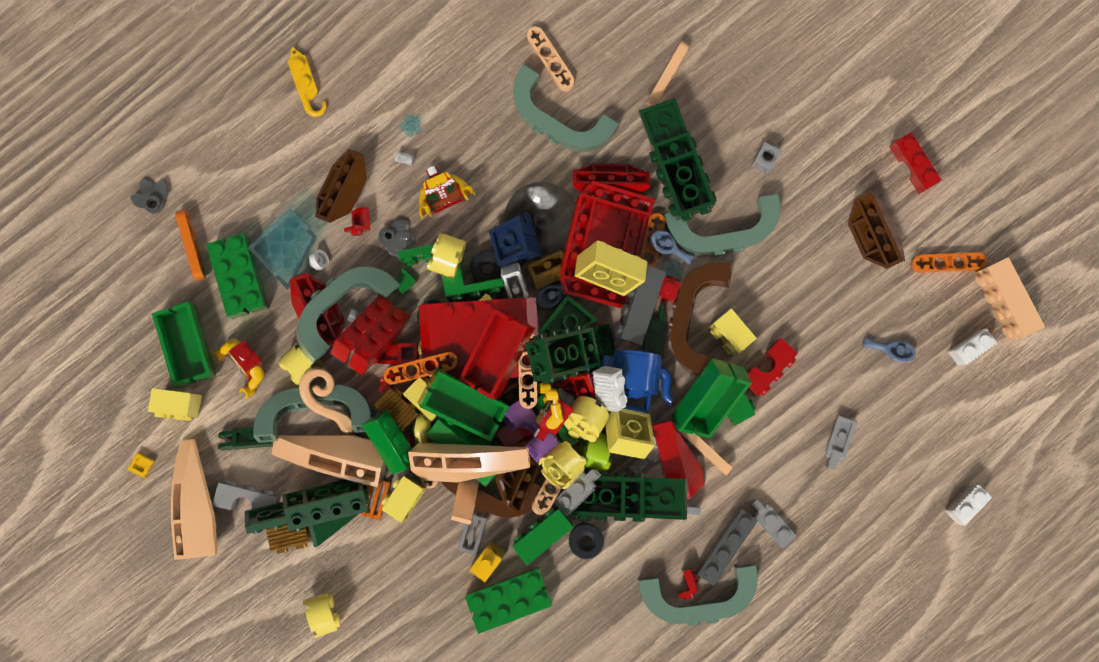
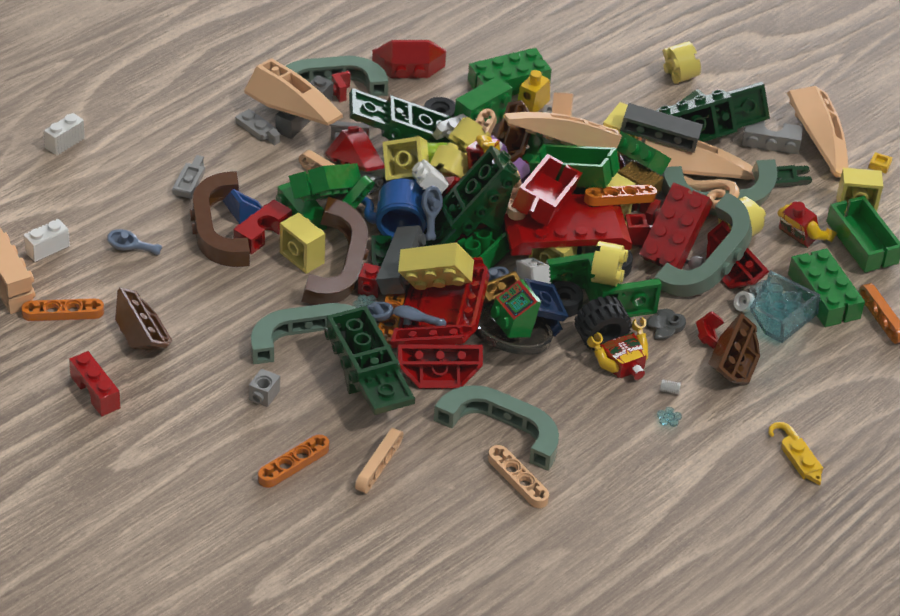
camera: 170 degrees right, 40 degrees down
(364, 472) = (661, 127): none -> dark grey brick
(458, 216) = (603, 317): none -> black tyre
(540, 218) = (516, 310): none -> green slope
(610, 354) = (431, 206): none -> sand blue piece
(613, 621) = (410, 58): none -> red wedge
(634, 227) = (410, 313): none -> sand blue piece
(678, 395) = (359, 192): none -> green beam
(740, 79) = (291, 458): none -> orange beam
(746, 533) = (289, 92): none -> light nougat wedge
(786, 399) = (241, 205): none -> blue slope
(825, 376) = (212, 245): none -> reddish brown arch

